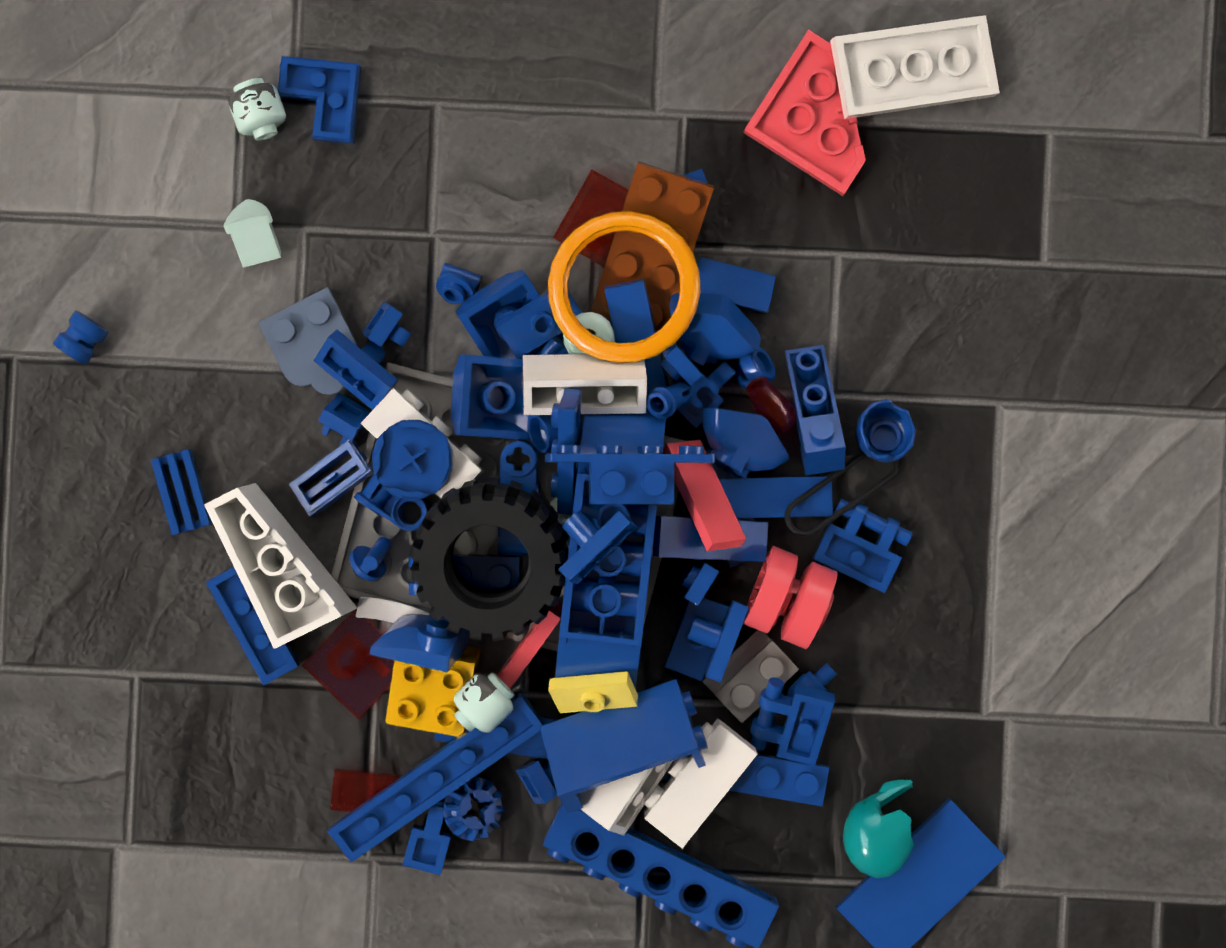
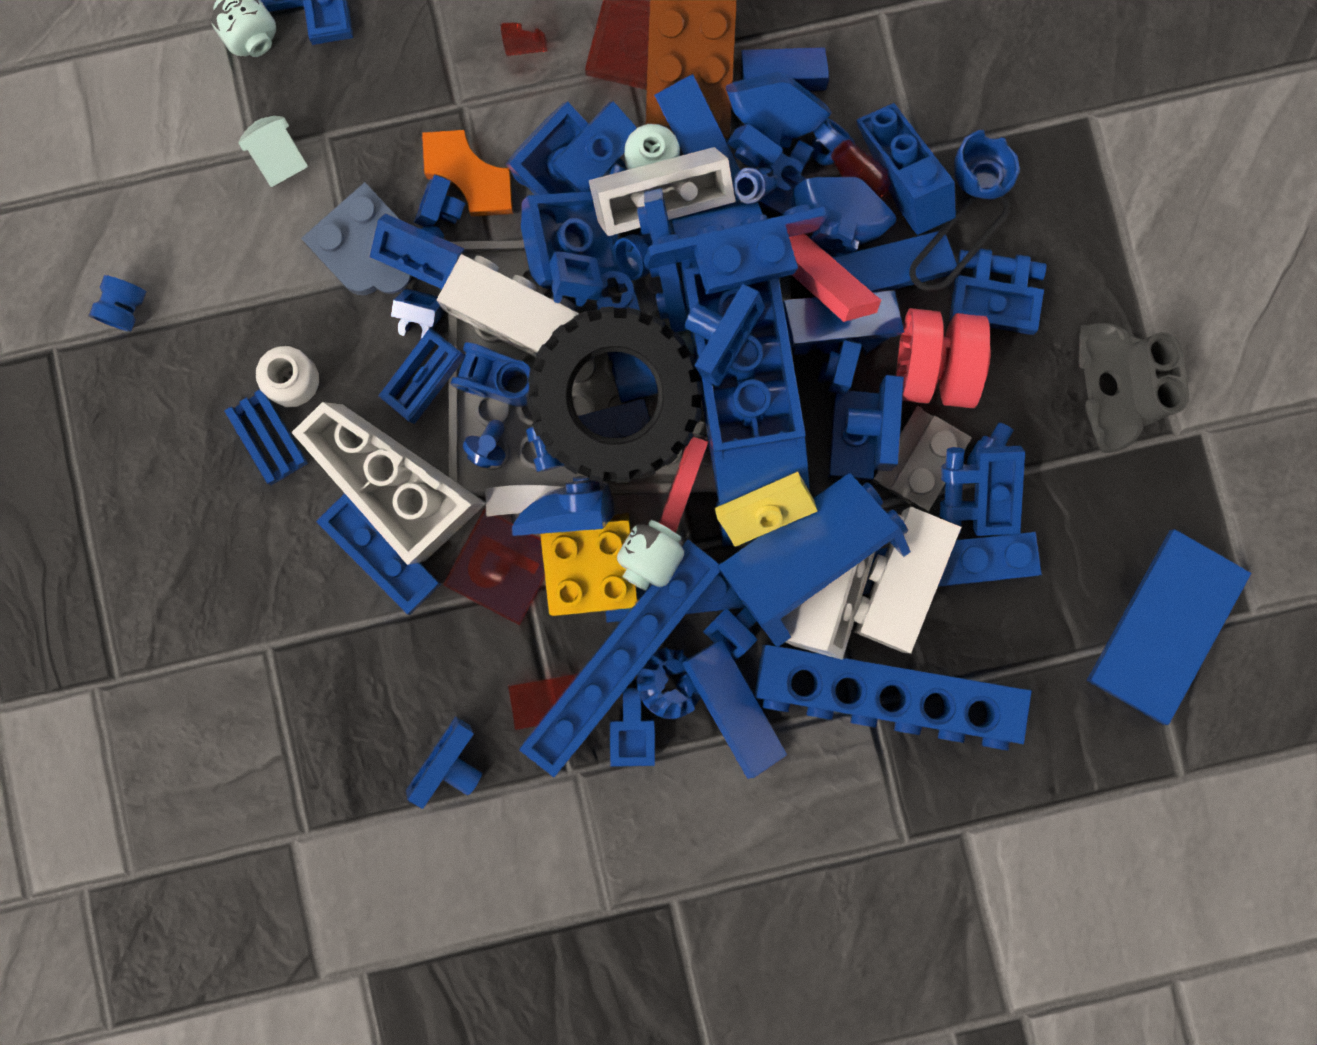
camera: 15 degrees left, 5 degrees down
(200, 444) = (287, 376): none -> white head
(261, 823) = (445, 766): none -> blue tile
(411, 286) = (483, 185): none -> orange tile
(412, 459) = (502, 319): blue tile -> none
(457, 284) = (498, 143): blue plate -> none
(487, 440) = (575, 277): none -> blue tile
(500, 193) = (521, 41): none -> clear red tile
(522, 846) = (734, 709): none -> blue tile
(643, 348) = (653, 17): light orange wedge -> none
(876, 841) = (1114, 589): teal helmet -> none
(934, 689) = (1139, 380): none -> dark grey piece

